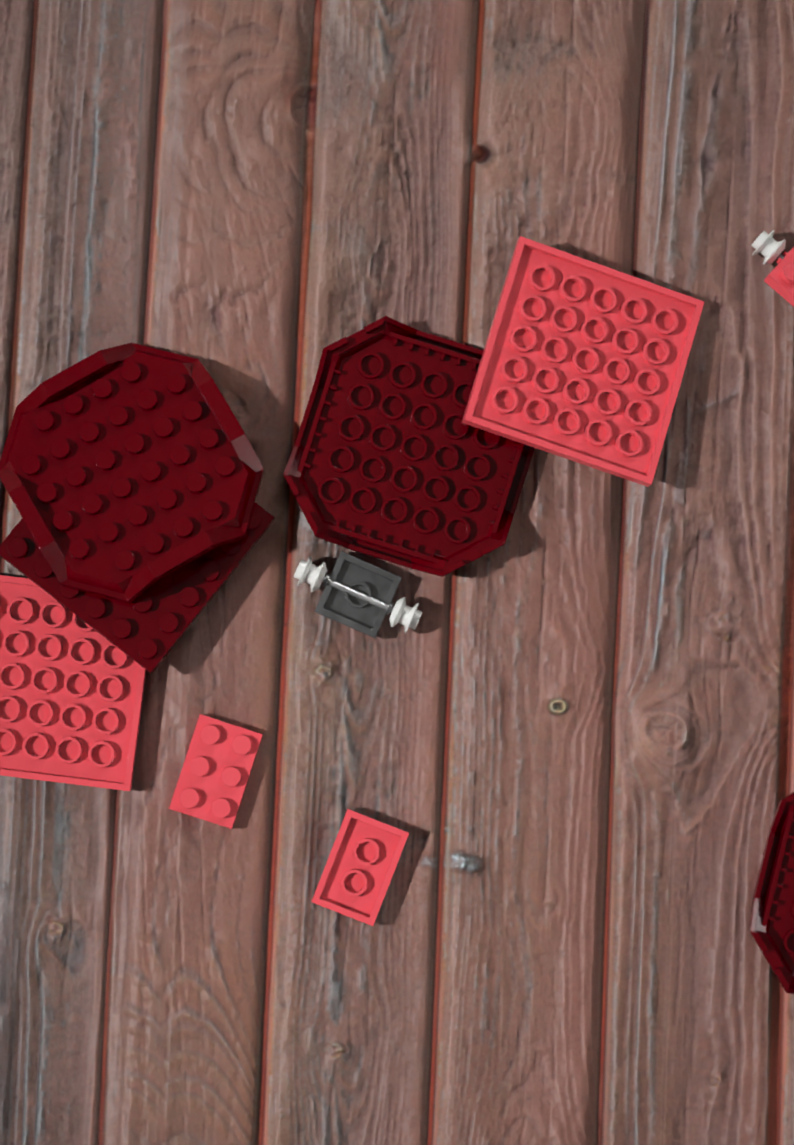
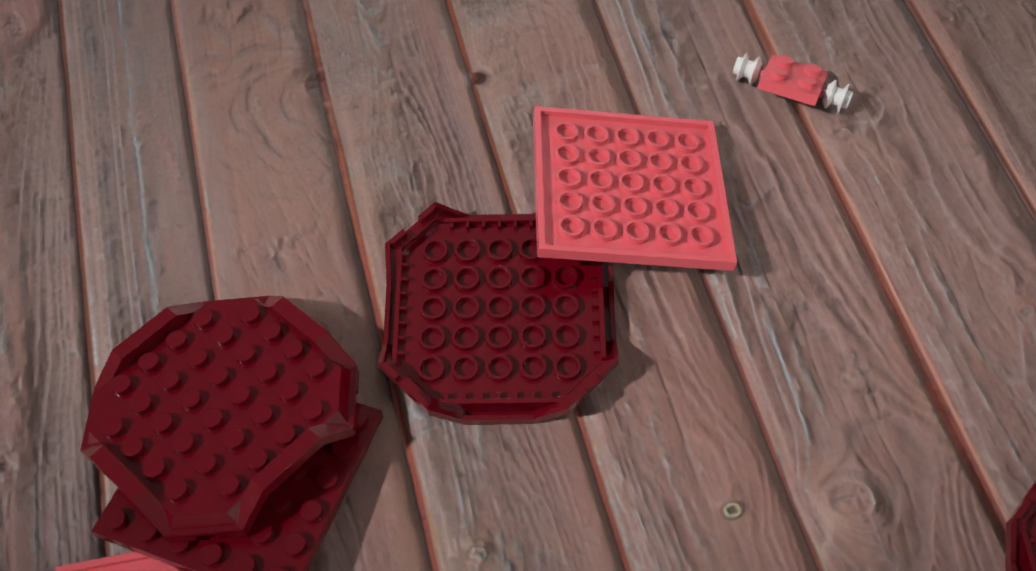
camera: 20 degrees left, 25 degrees down
(358, 594) = (488, 461): flat silver plate -> none

